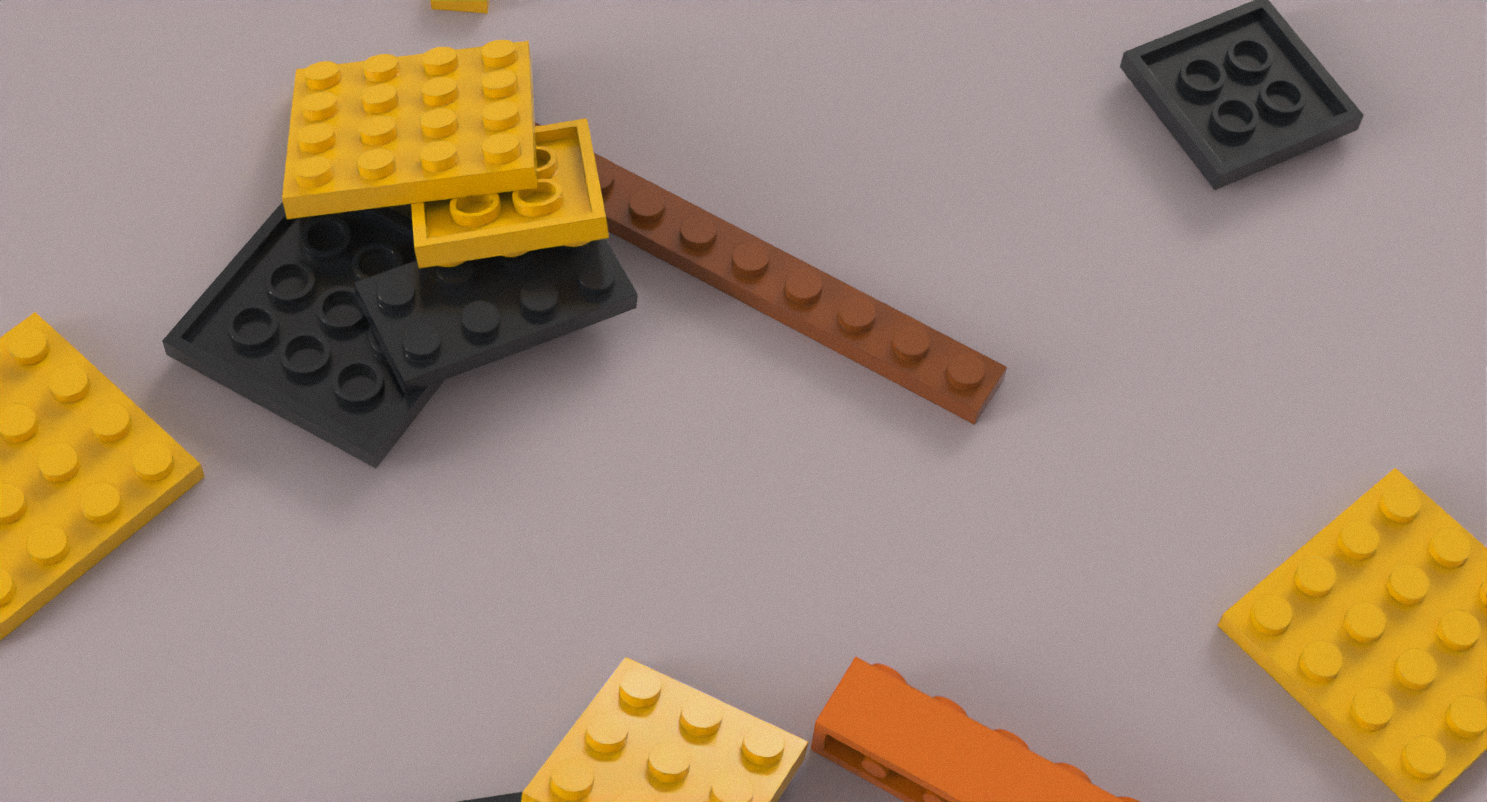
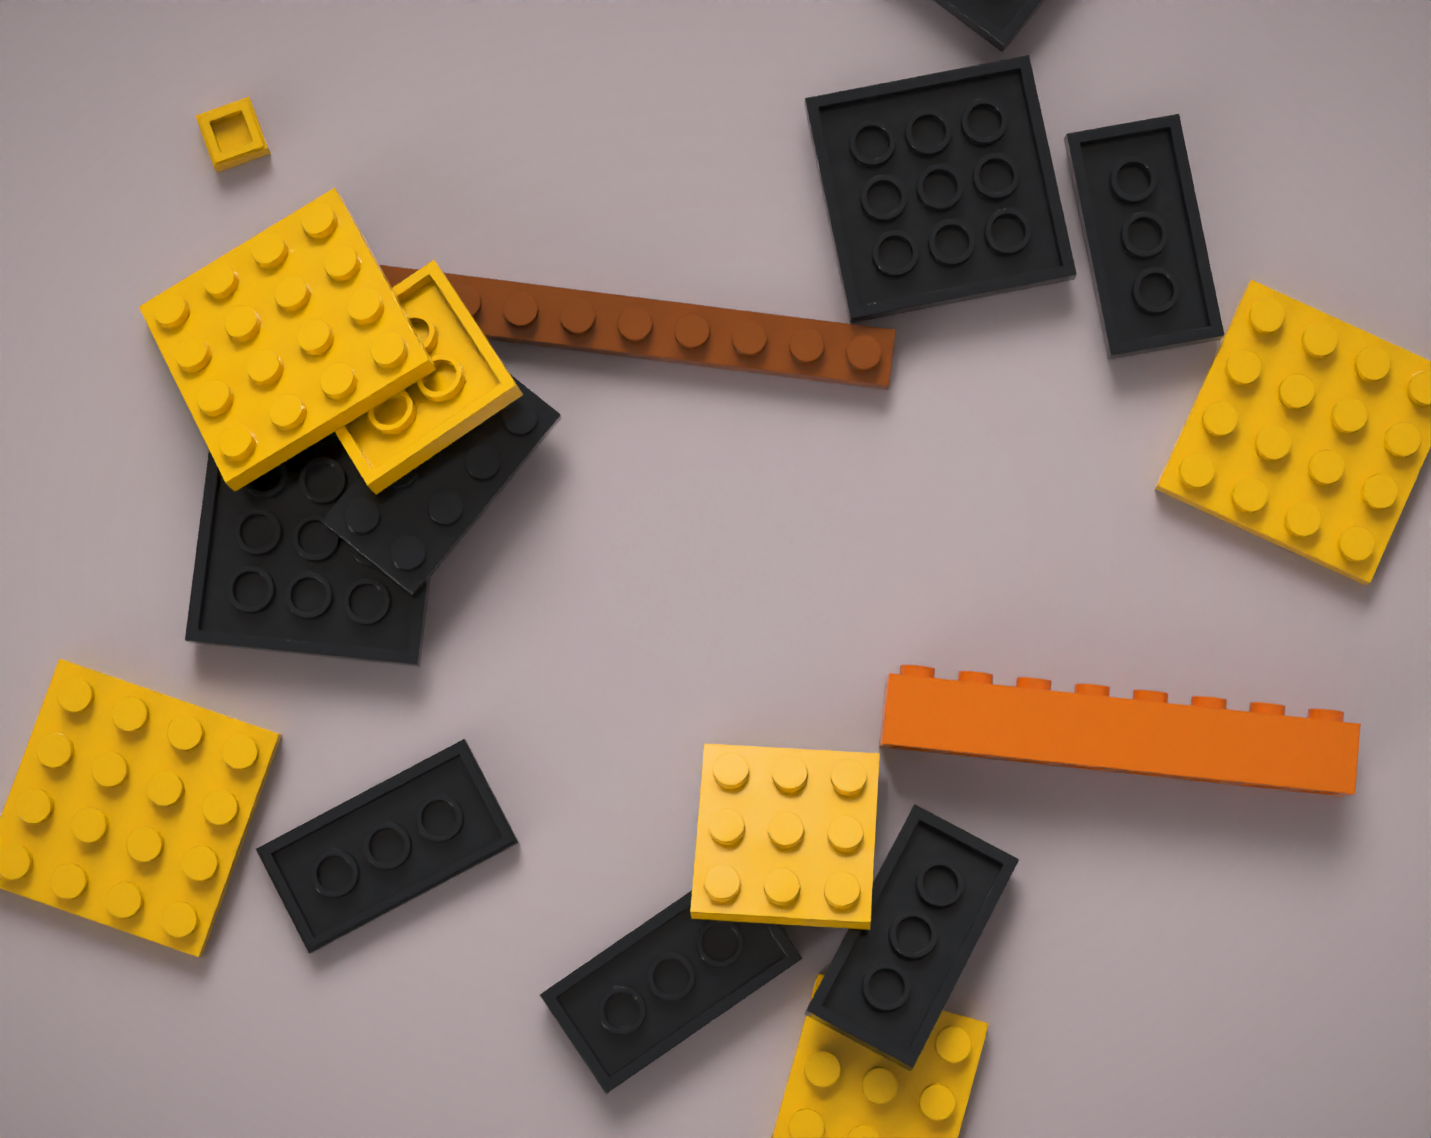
camera: 20 degrees left, 25 degrees up
(244, 619) = (387, 846): none -> black tile
(1105, 272) = (939, 189): none -> black plate
(1296, 390) = (1143, 236): none -> black plate

